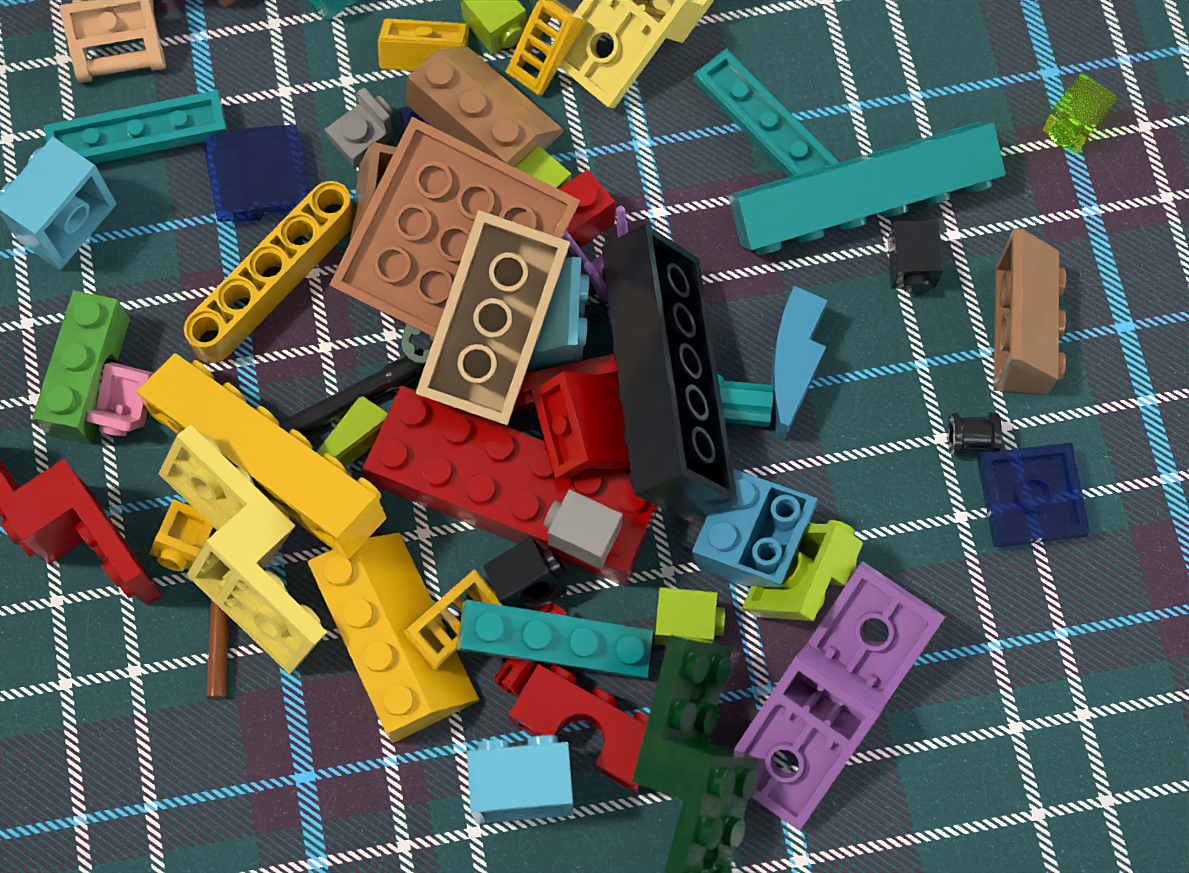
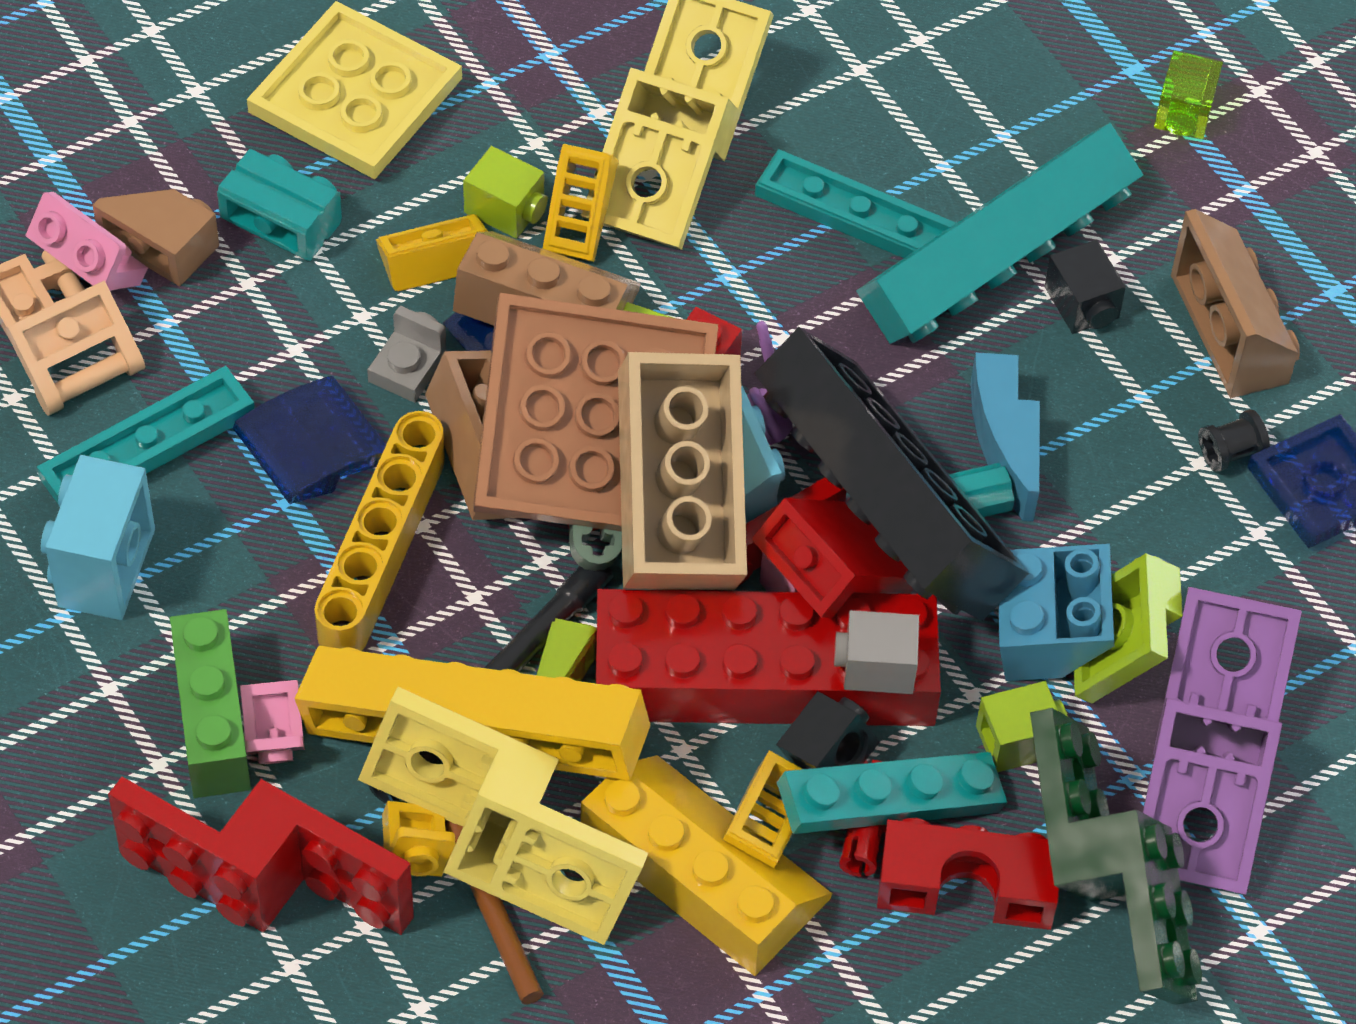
camera: 25 degrees left, 15 degrees down
(520, 780) = (929, 943): medium azure brick -> none

